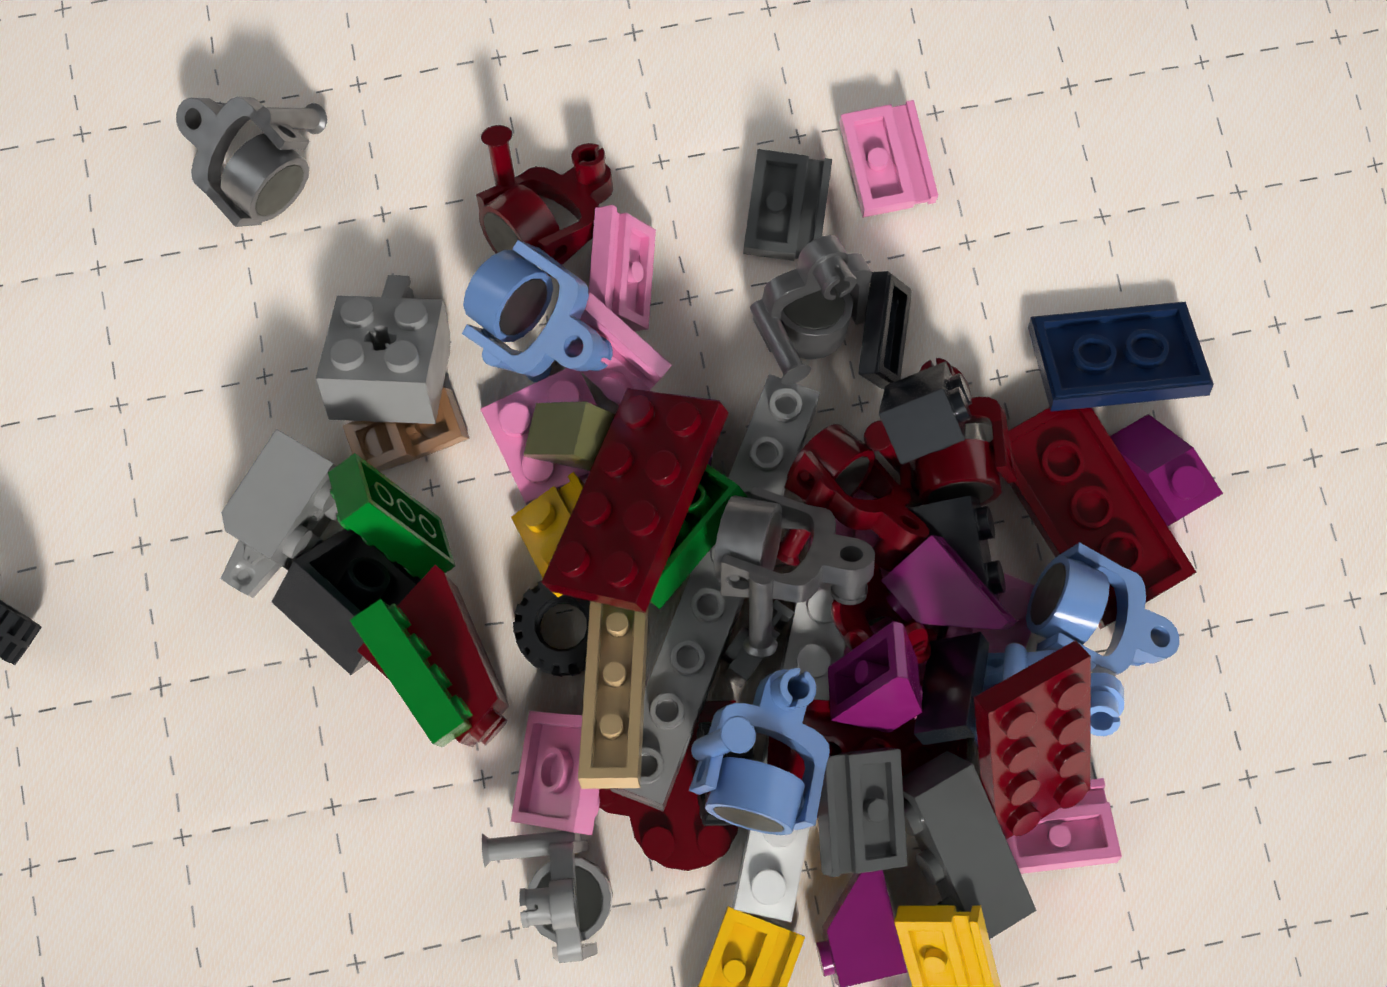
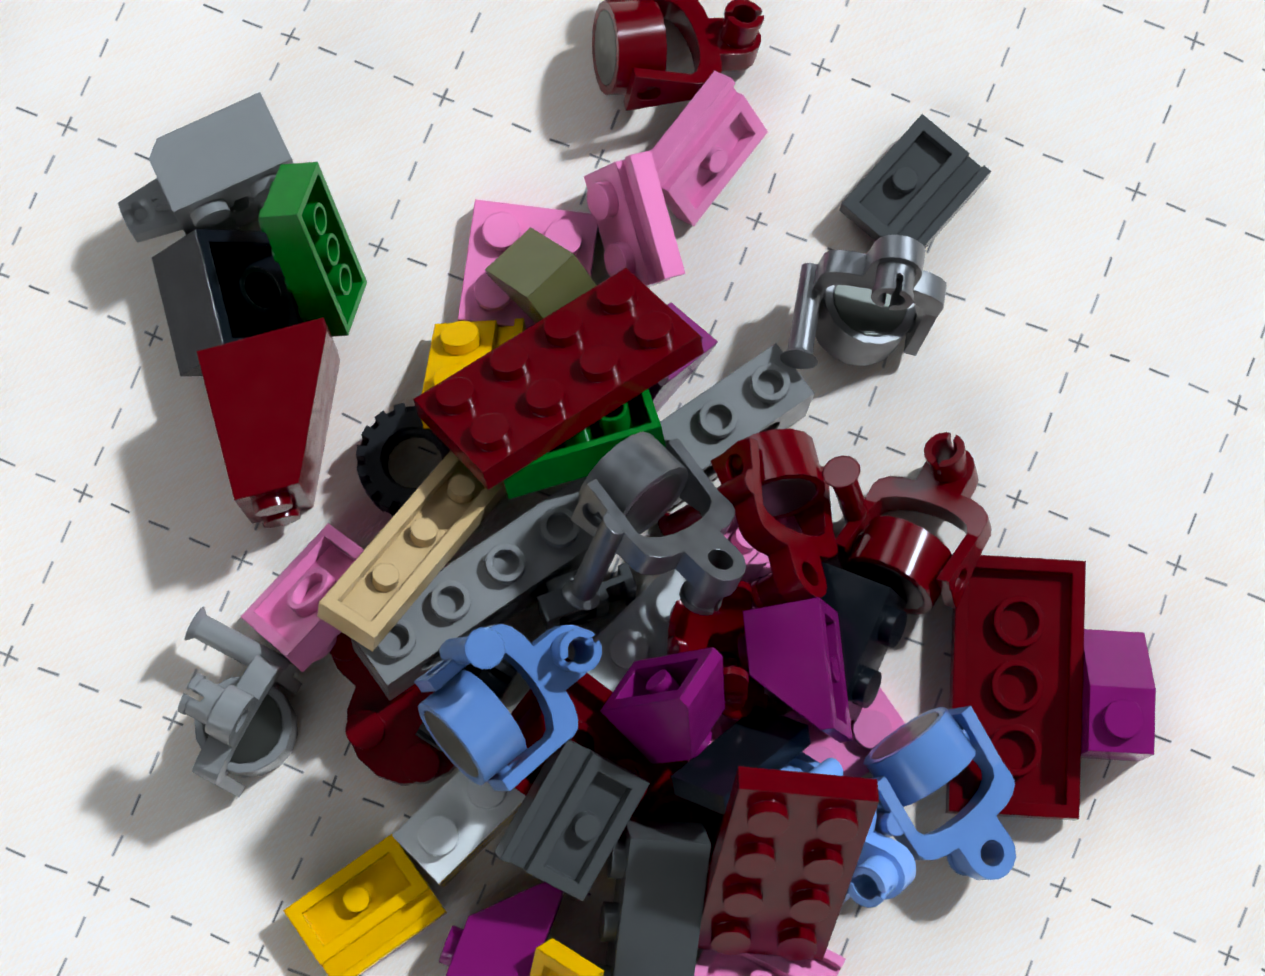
camera: 35 degrees right, 0 degrees up
(385, 357) = (414, 89): light grey hinge -> none
(394, 444) = (390, 178): medium nougat slope -> none
(406, 666) = (230, 403): green piece -> none
(510, 299) = (568, 108): medium blue piece -> none
(885, 329) = (927, 376): black tile -> none
(888, 158) = (1050, 206): bright pink plate -> none
(925, 412) = (899, 476): black brick -> none
(1119, 356) = (1150, 554): dark blue tile -> none

